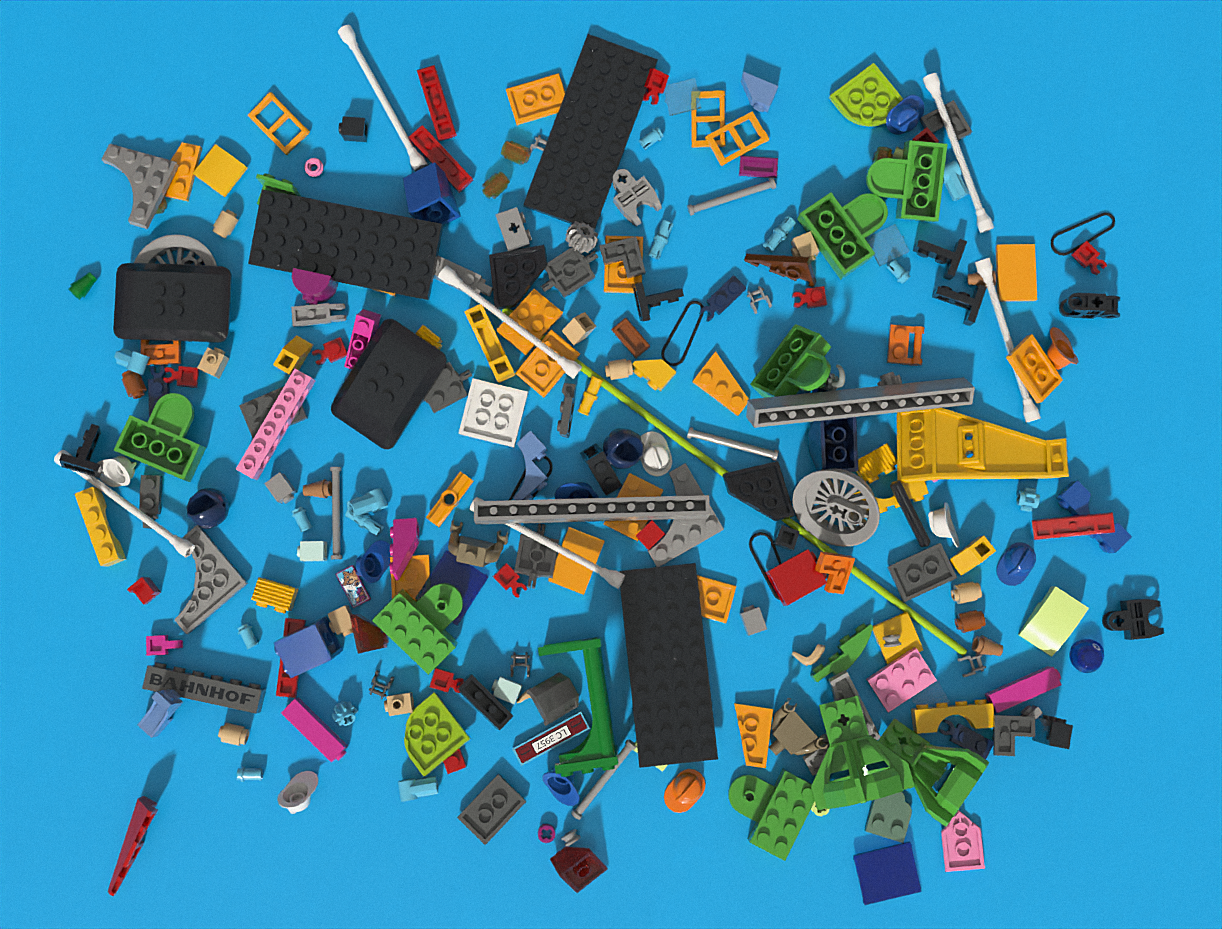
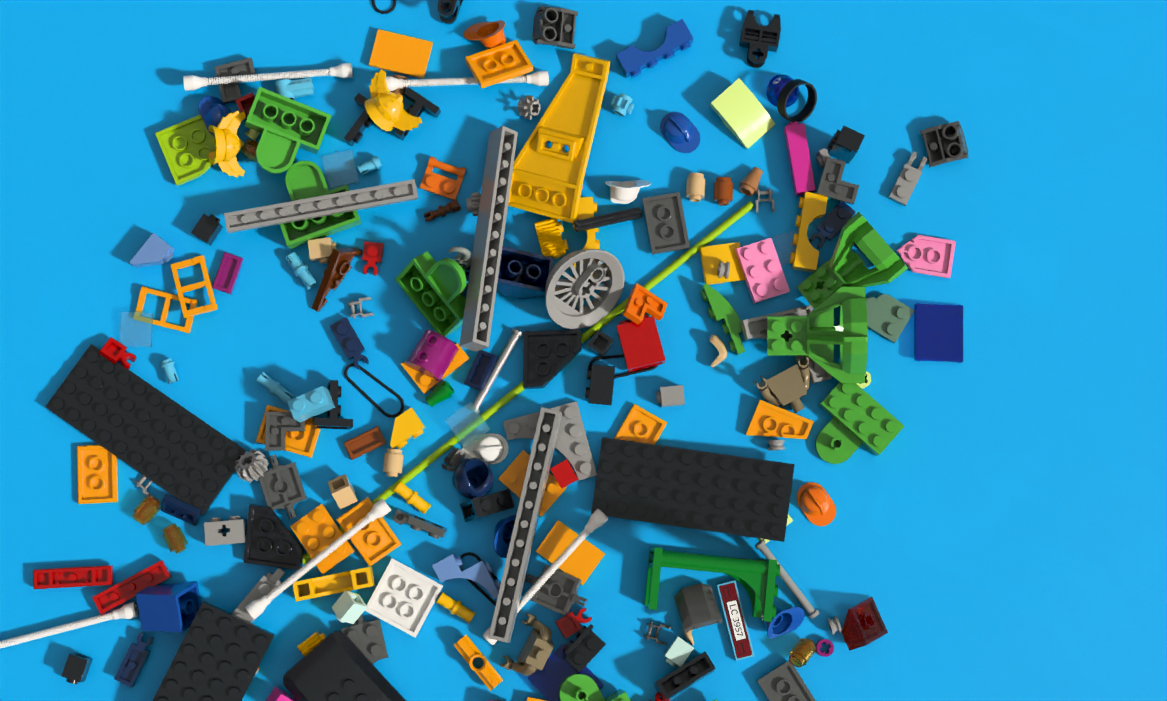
camera: 80 degrees left, 0 degrees up
(372, 179) = (134, 661): none -> dark blue plate
(471, 363) = (349, 607): none -> light aqua brick
(486, 596) = (584, 649): none -> black bracket
(496, 464) = (455, 607): none -> yellow pin
(523, 183) = (180, 510): none -> dark blue plate
(536, 812) = (802, 652): none -> clear orange brick
(632, 195) = (219, 407): light grey piece -> none
(637, 425) = (453, 459): none -> dark grey piece
(654, 275) = (311, 404): none -> medium azure piece
(673, 430) = (467, 424): none -> clear light blue piece
(698, 397) = (440, 393): none -> green cone
(729, 429) = (480, 370): none -> dark blue plate
(731, 196) = (250, 307): light grey bar -> none
(731, 379) = (432, 355): none -> magenta brick
(732, 736) = (776, 445): none -> light grey bush
(746, 548) = (601, 384): none -> black brick
(795, 136) = (207, 228): none -> black brick
(847, 234) = (321, 206): none -> light grey plate
(879, 359) = (451, 207): none -> reddish brown piece
(882, 131) = (227, 144): none -> yellow helmet
(960, 271) = (387, 107): none -> yellow helmet
(972, 555) = (661, 171): yellow slope -> none
(999, 408) = (528, 107): none -> light grey gear
(1032, 804) = (907, 180): none -> light grey hinge
(1073, 526) = (658, 70): red plate -> none
(1080, 686) = (810, 104): none -> black tyre
(1080, 833) = (944, 143): none -> dark grey slope
(1086, 413) = (554, 27): none -> dark grey slope

